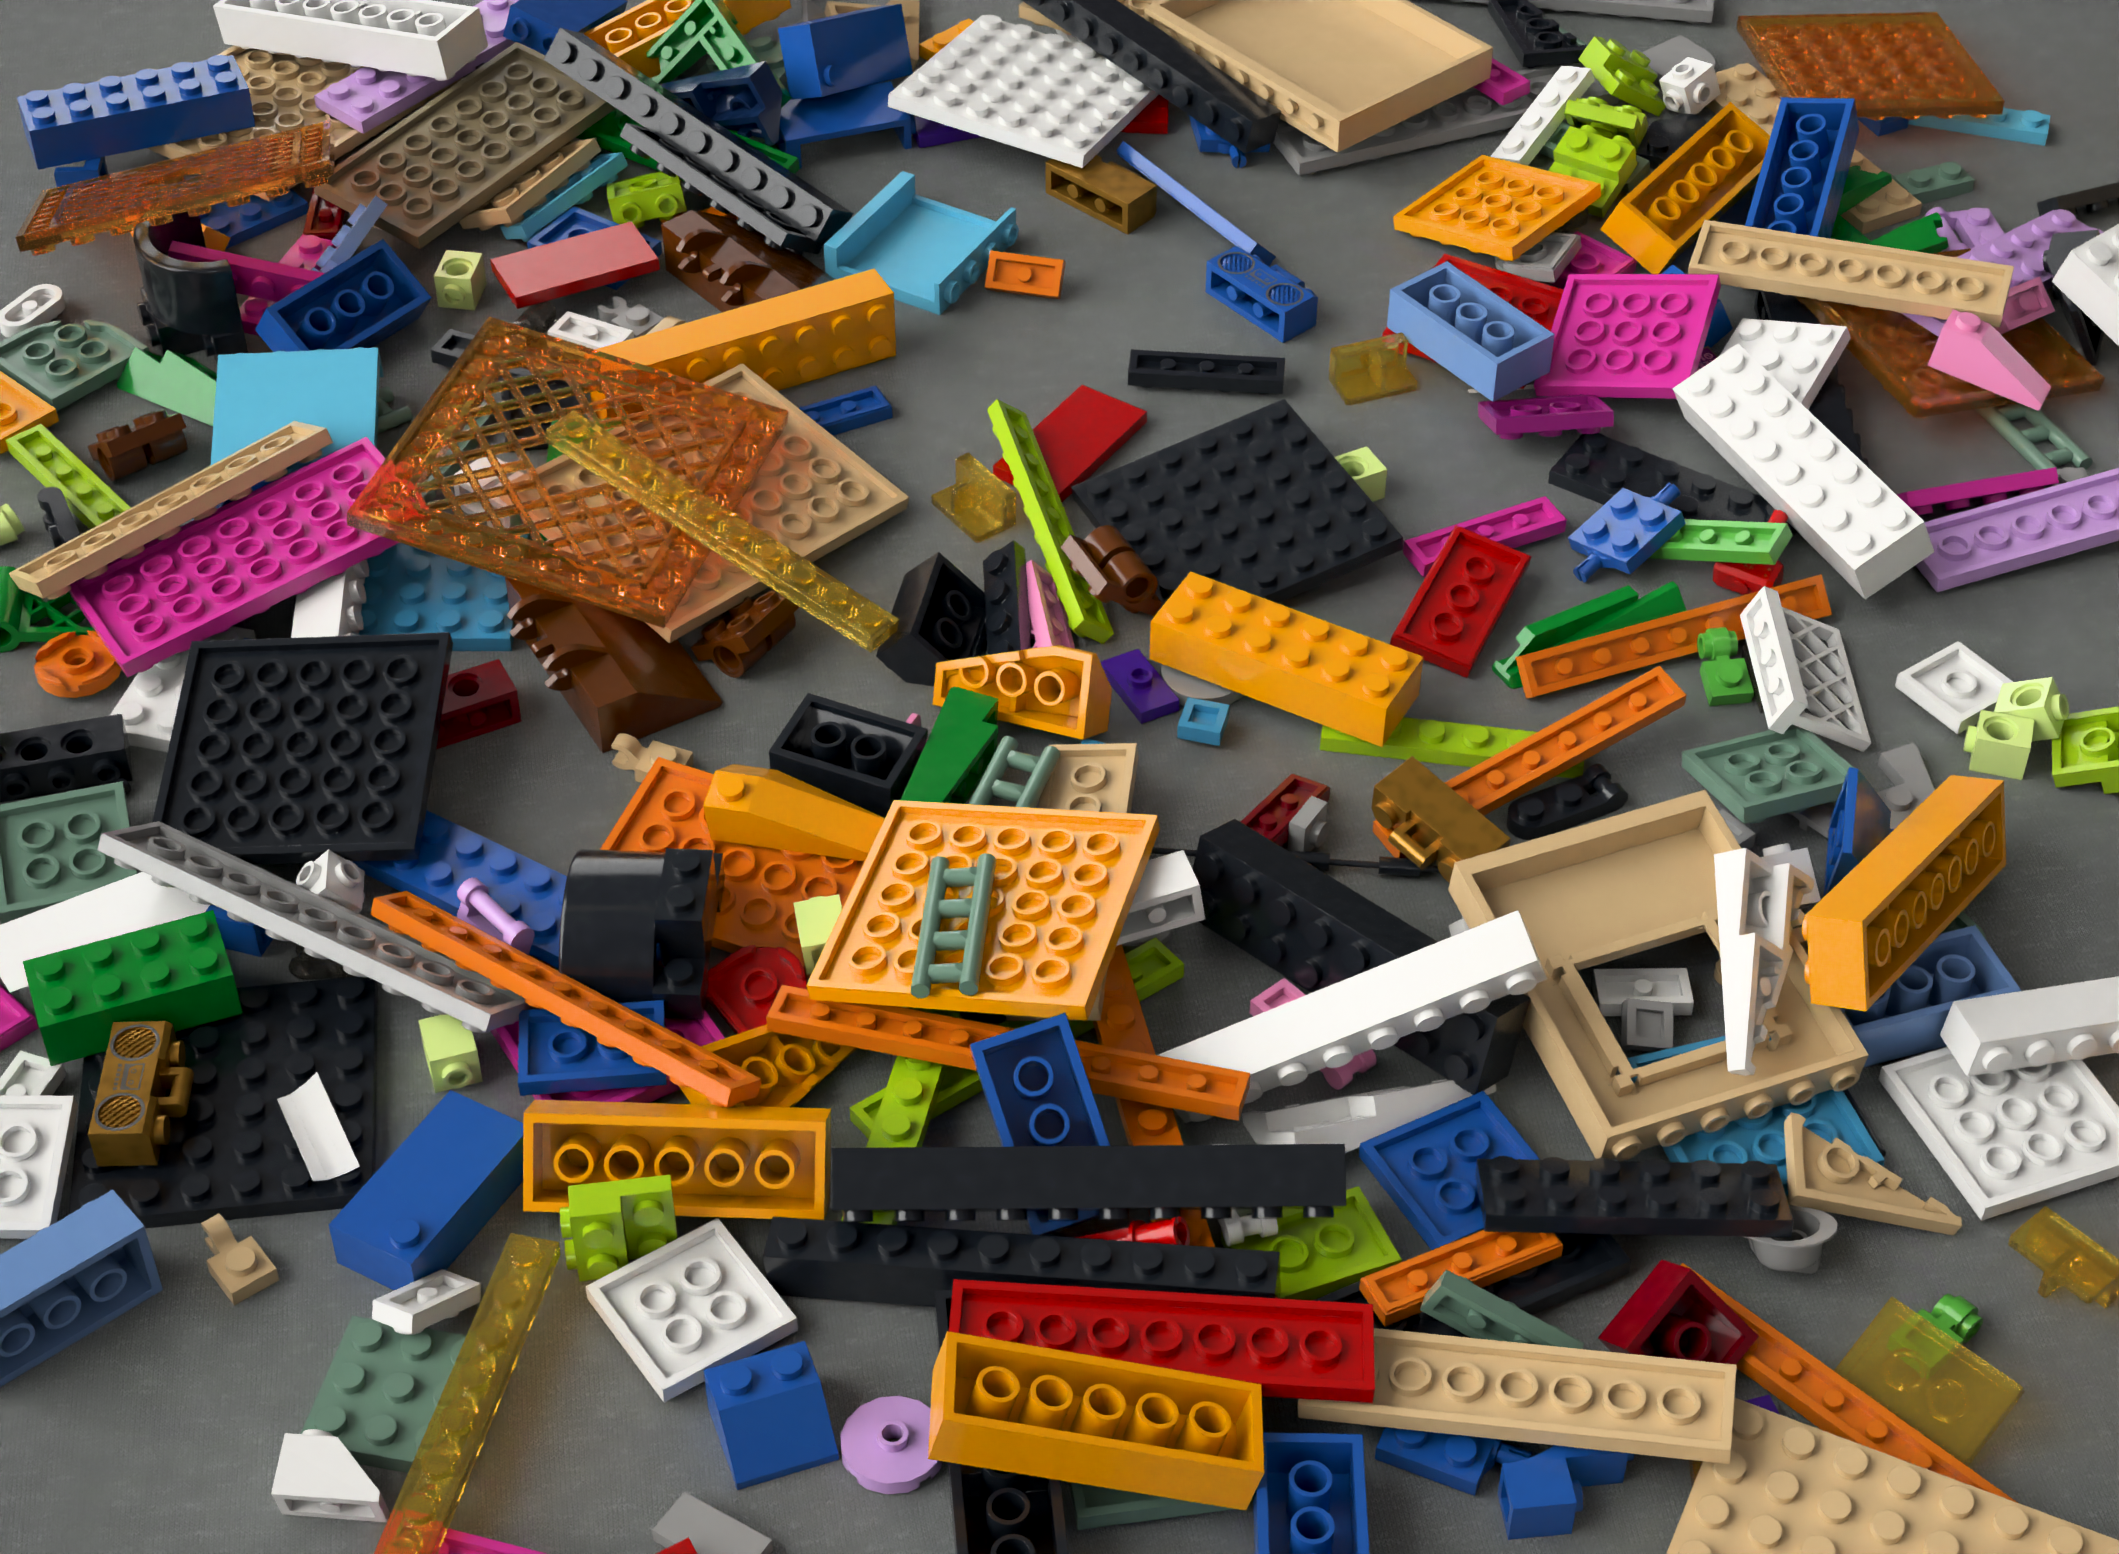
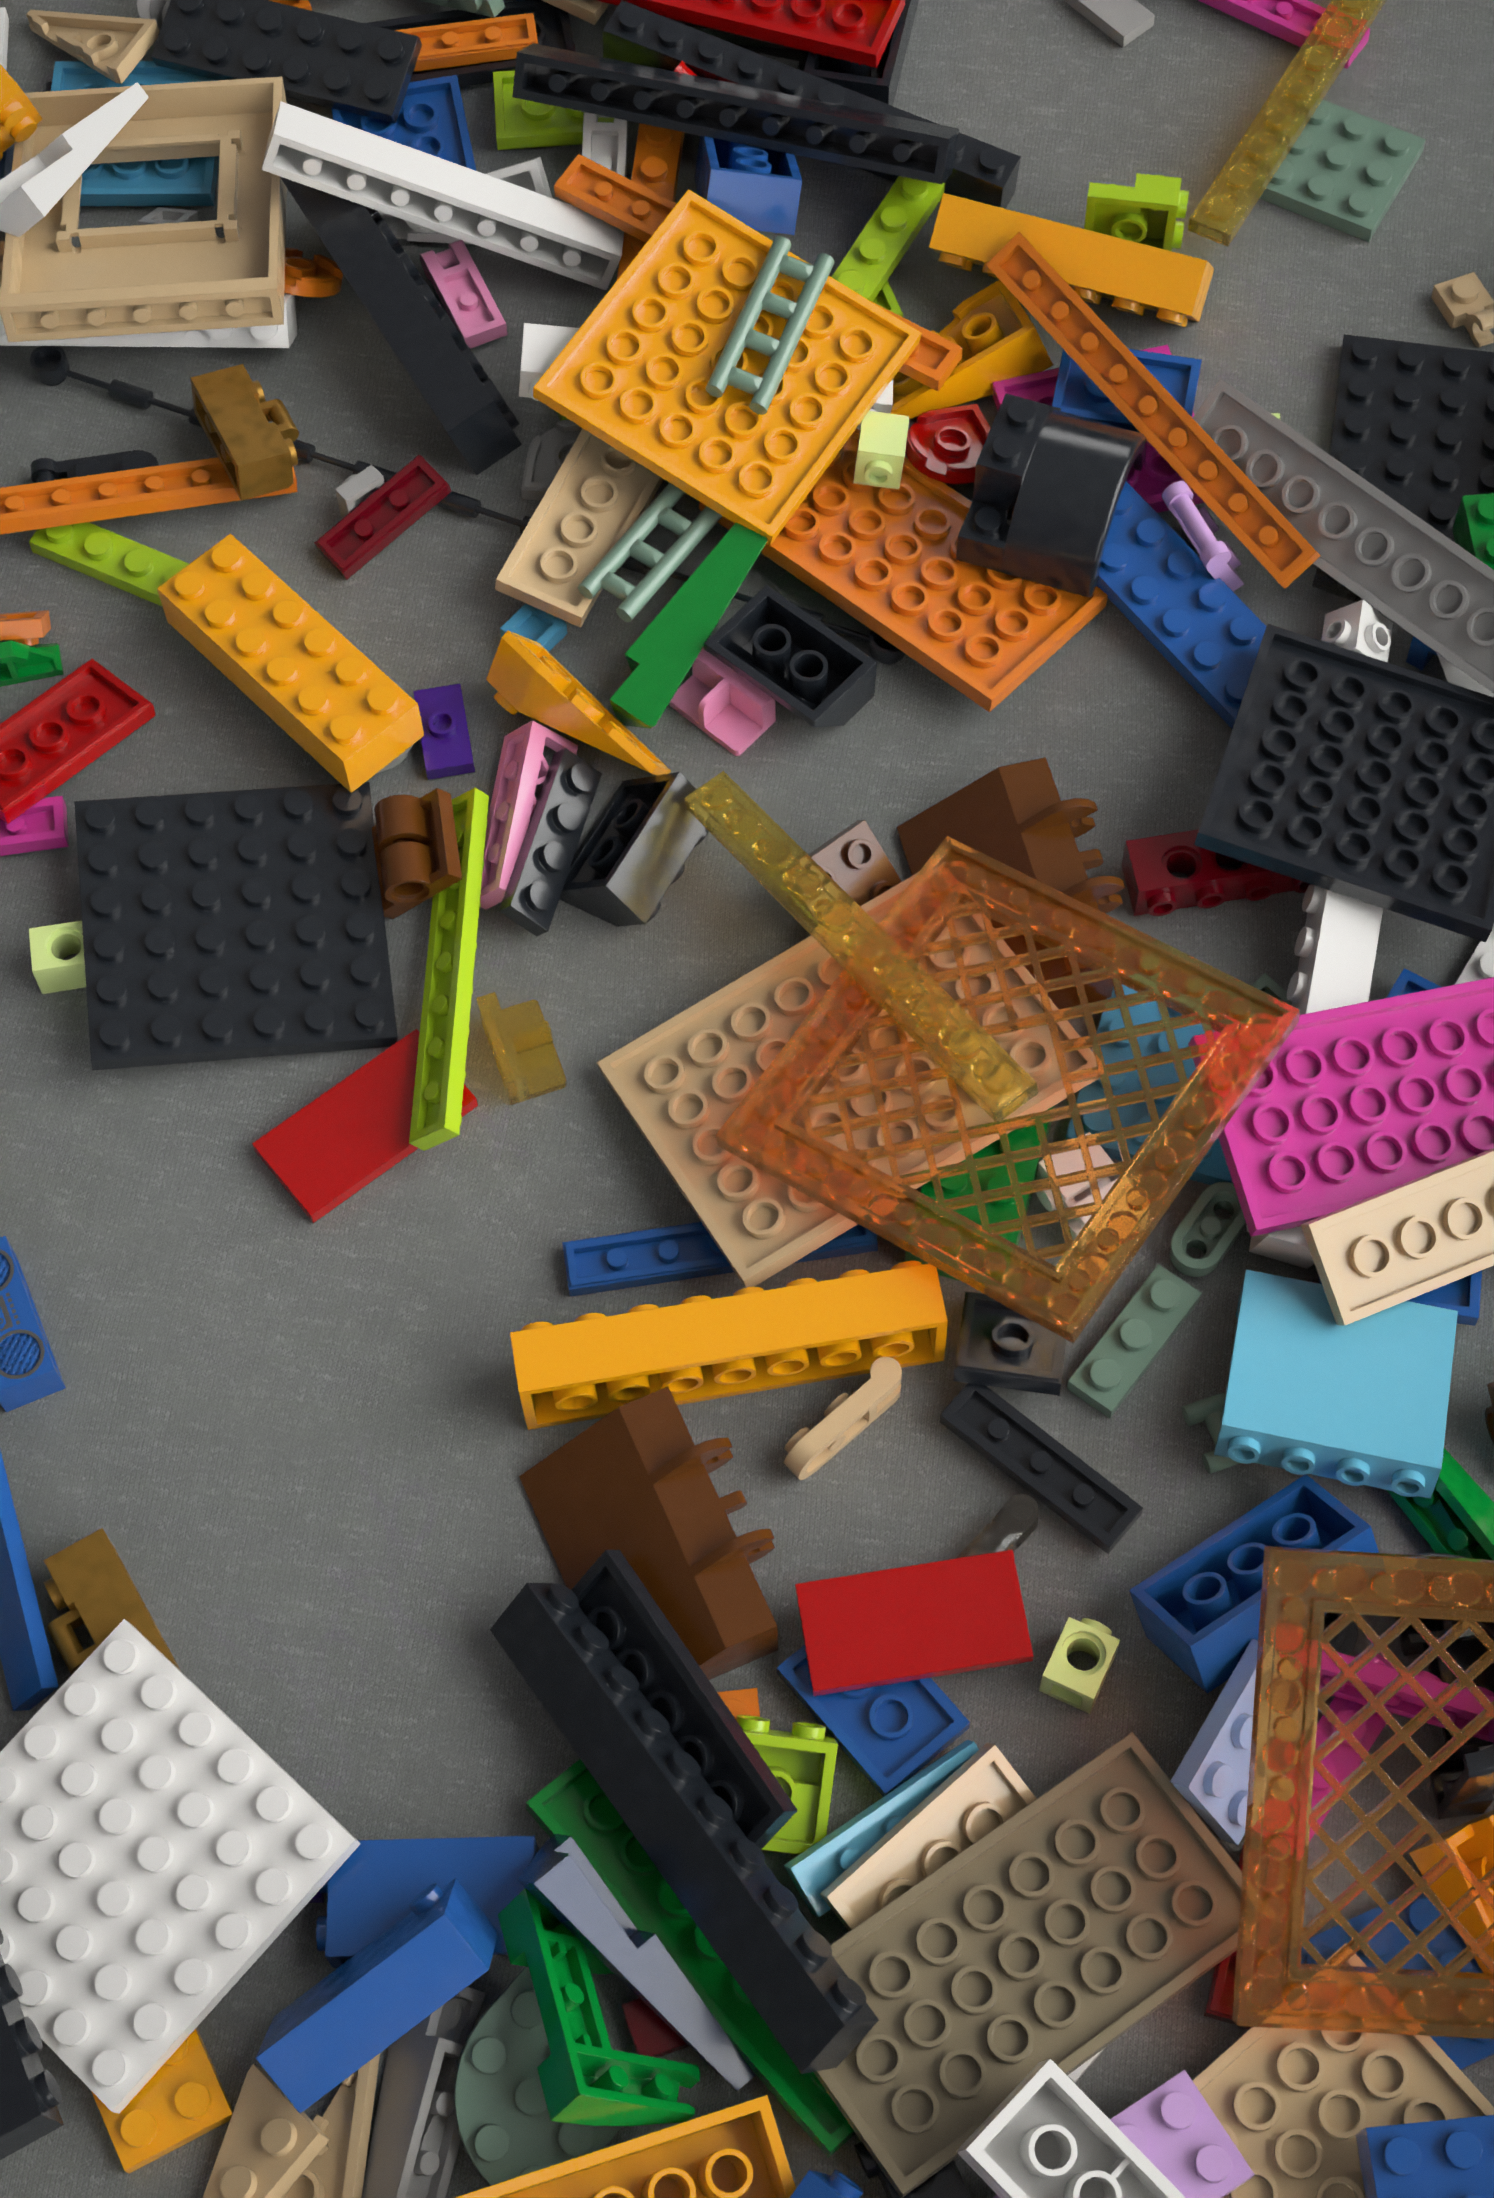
camera: 160 degrees left, 20 degrees up
(318, 1131) = (1389, 389): white sticker -> none
(324, 1480) = (1402, 91): white slope -> none
(426, 1302) = (1308, 209): white plate -> none
(431, 1194) = (1288, 308): blue brick -> none
(588, 331) = (918, 1491): white plate -> none
(635, 757) = (984, 749): tan plate -> none
(636, 318) = (851, 1521): light grey plate -> none
(691, 1308) = (1070, 153): white plate -> none
(770, 1415) = (1044, 81): blue slope -> none
(786, 814) = (885, 581): light orange wedge -> none
(885, 1464) = (950, 44): lavender plate -> none
(918, 245) = (407, 1568): medium azure panel -> none
(1025, 274) = (296, 1452): orange plate -> none
(1203, 721) = (402, 655): dark azure plate -> none
(1206, 371) = (146, 1197): black plate -> none

